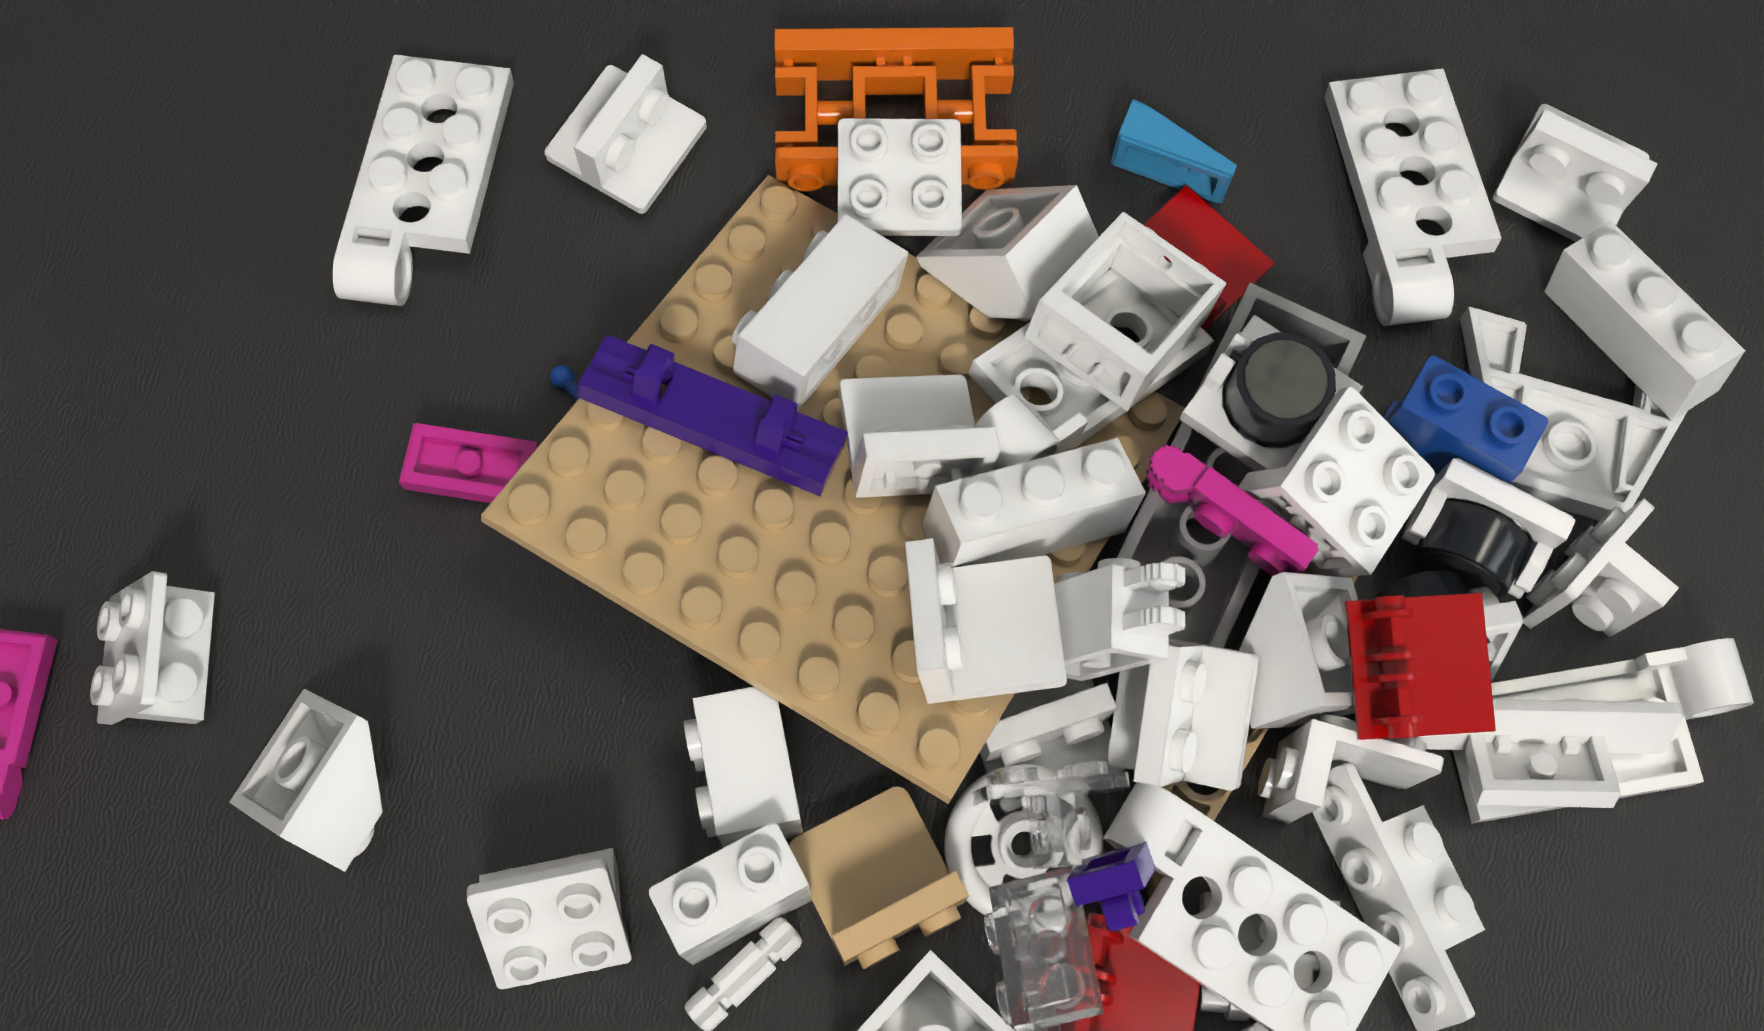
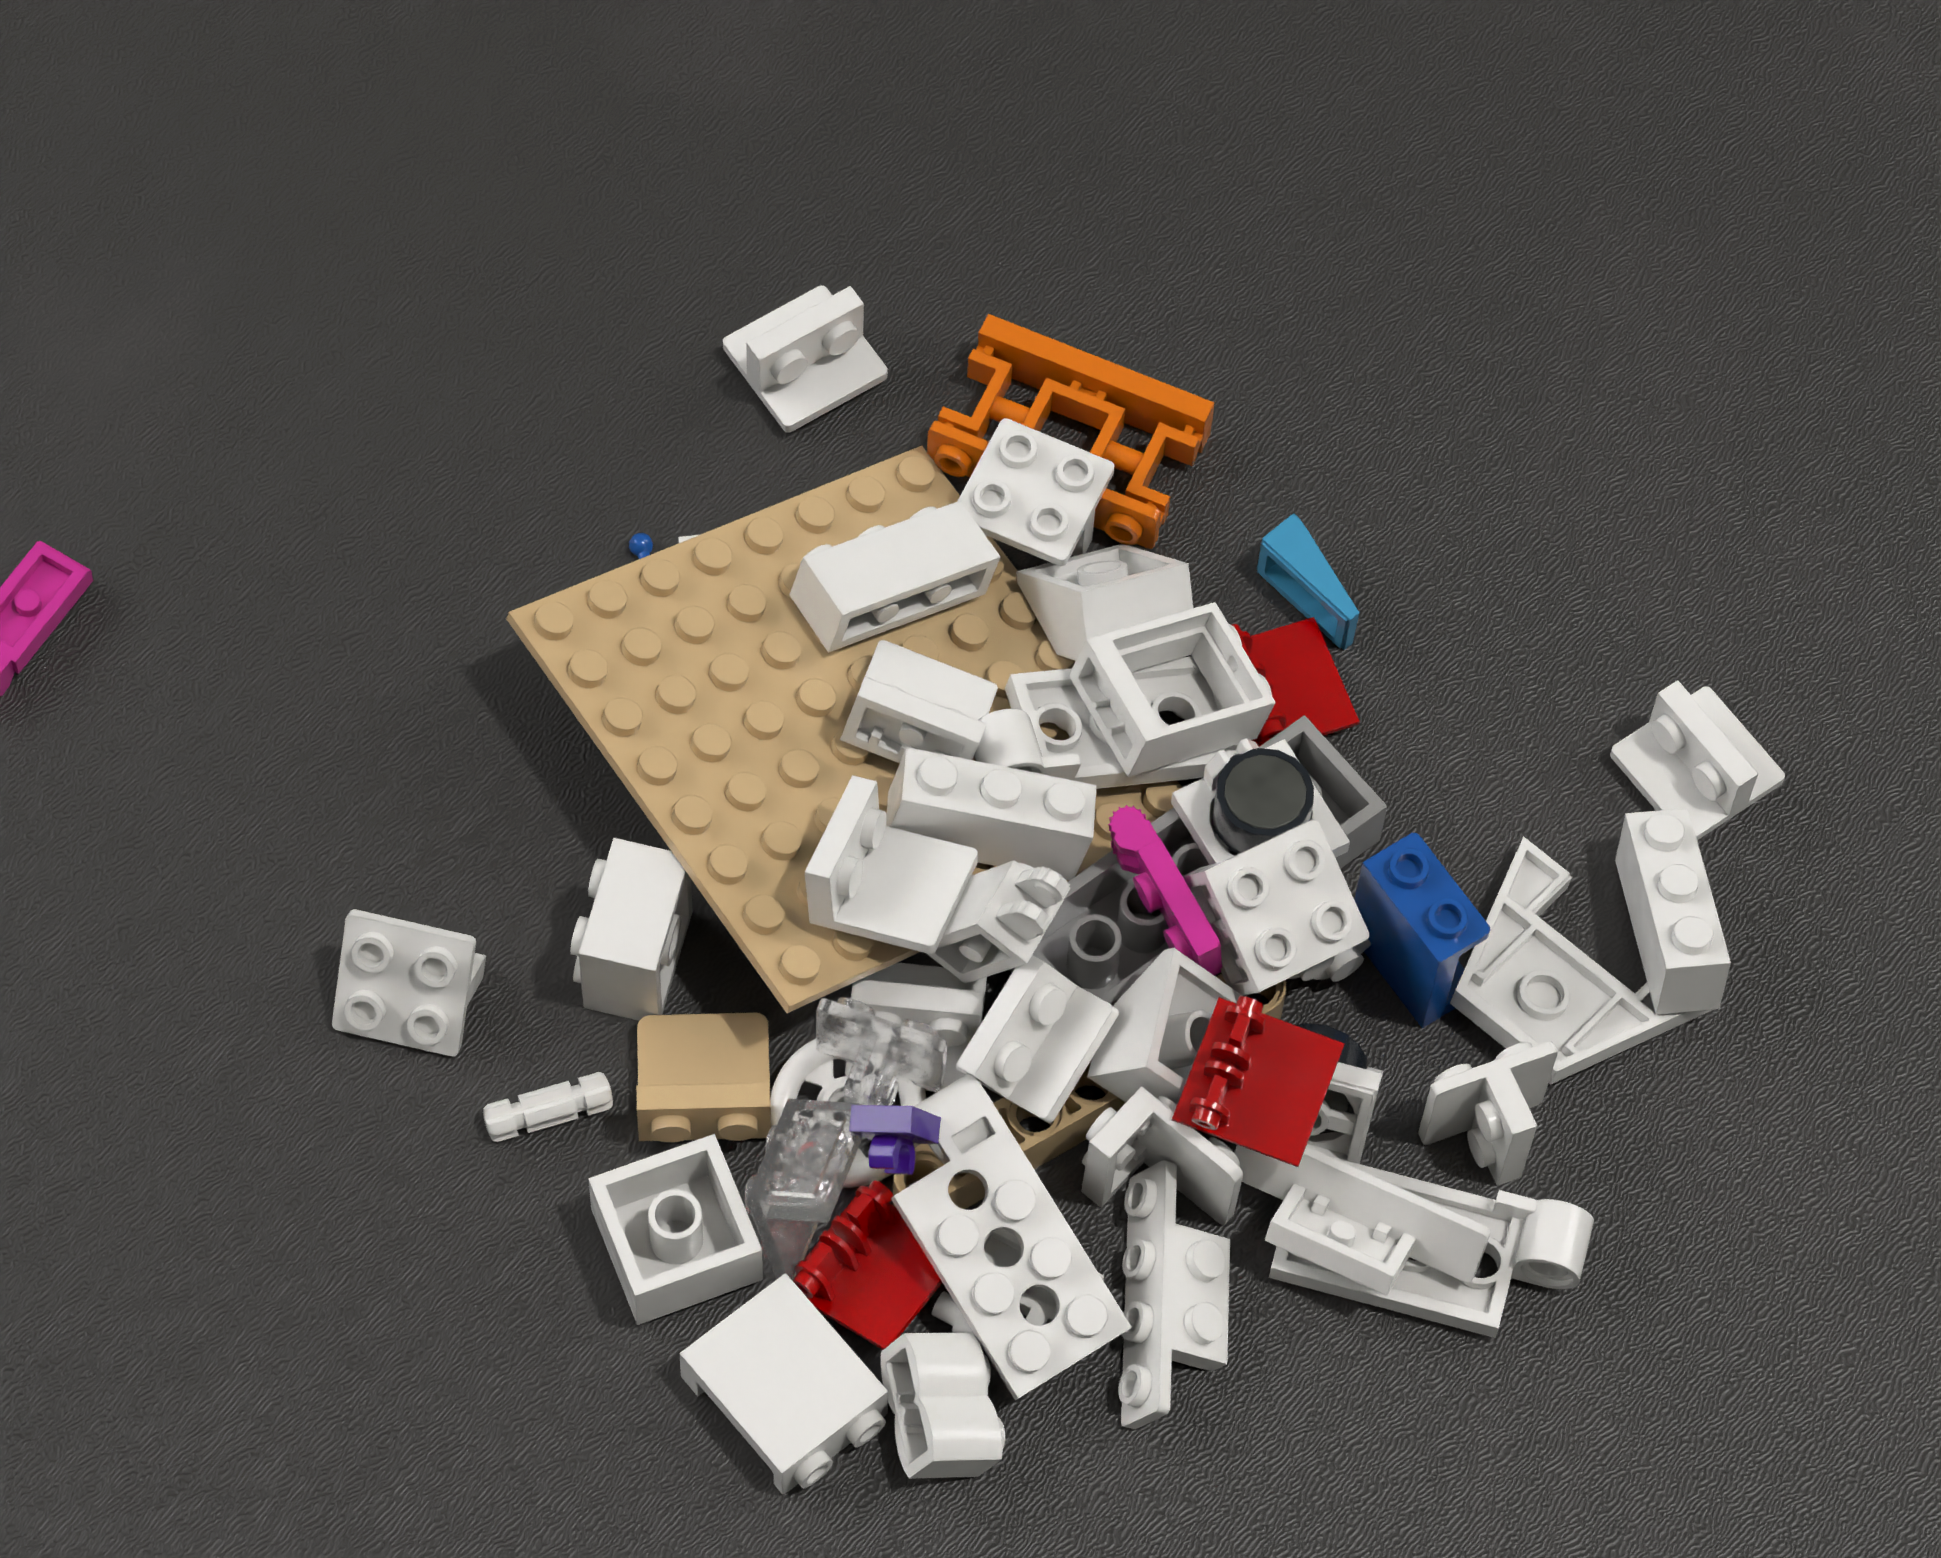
camera: 25 degrees right, 10 degrees down
(153, 653) = (172, 622): white bracket -> none
(316, 782) = (261, 788): white slope -> none
(374, 245) = (527, 359): white hinge -> none
(461, 462) = (506, 573): dark pink hinge -> none
(713, 414) = (752, 618): dark purple hinge -> none
(730, 894) = (568, 1019): white panel -> none
(1403, 262) = (1497, 714): white hinge -> none
(1480, 544) = (1397, 1012): piece -> none

